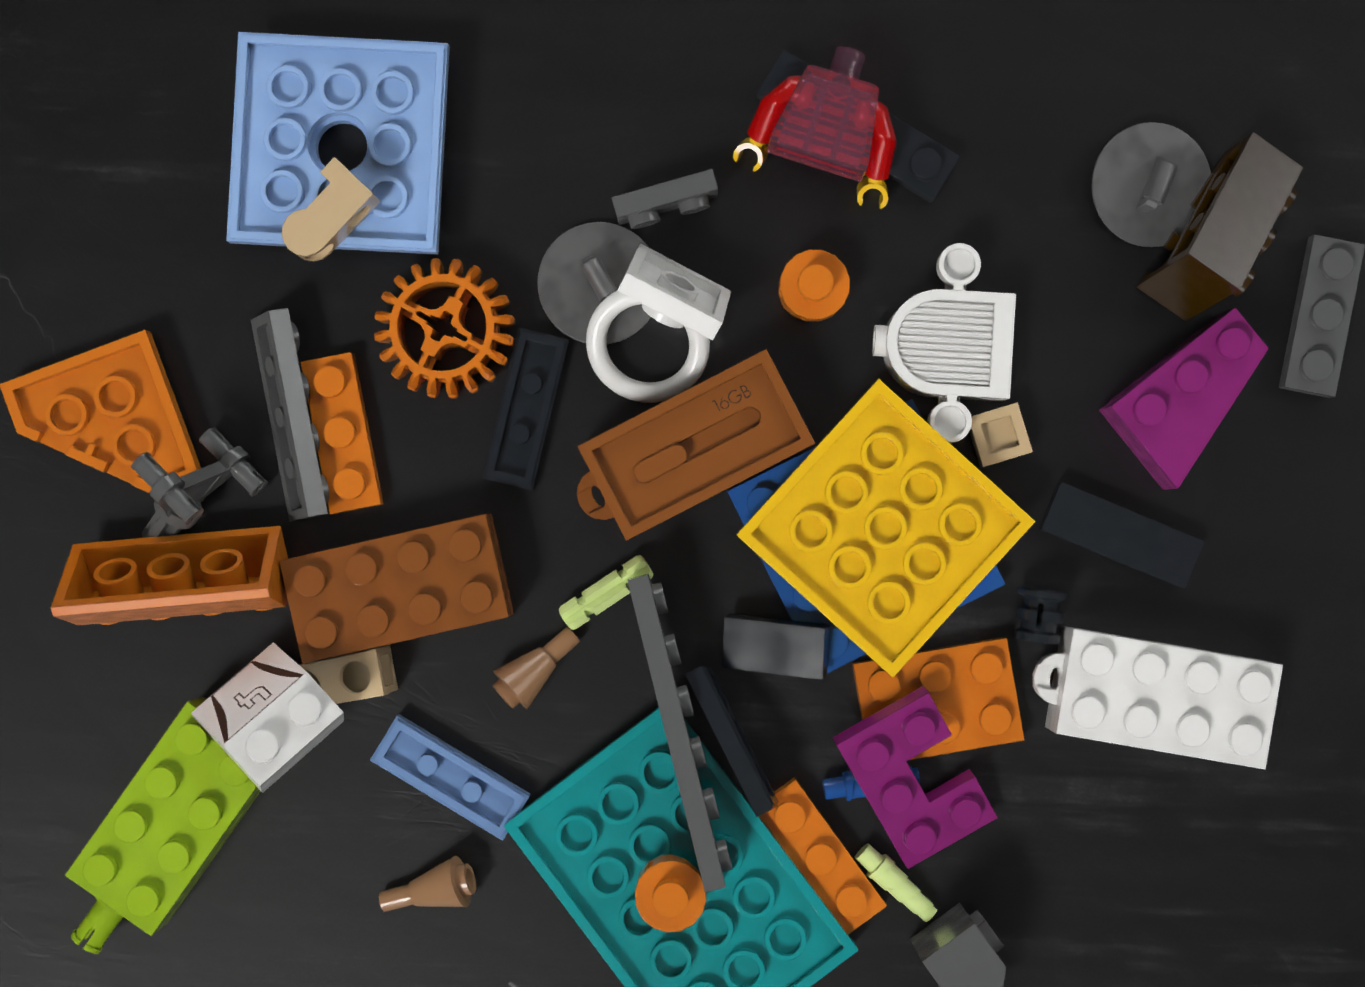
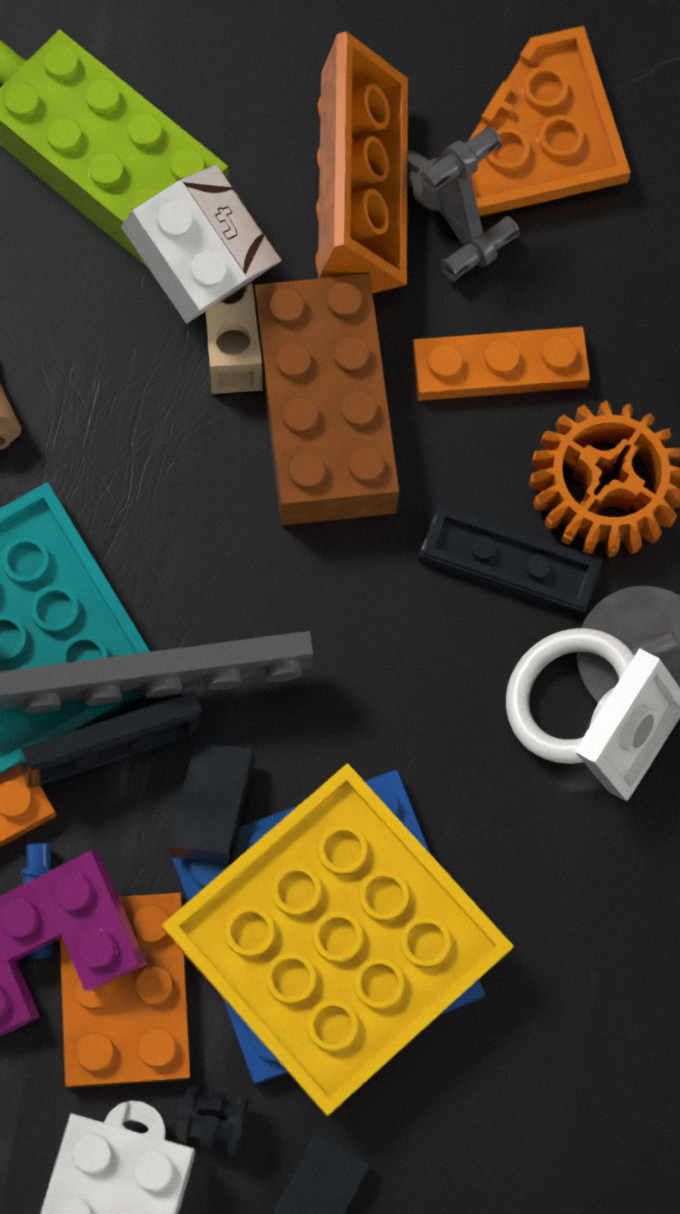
camera: 90 degrees right, 15 degrees down
(286, 399) = (547, 307): dark grey plate -> none
(449, 776) = (109, 435): medium blue tile -> none
(526, 675) = (211, 526): medium nougat cone -> none
(603, 593) = (293, 617): yellowish green axle -> none
(692, 446) = (452, 730): dark orange piece -> none
(814, 285) = (627, 893): orange piece -> none
(951, 343) = (547, 1046): white piece -> none
(999, 435) = (433, 1094): tan plate -> none

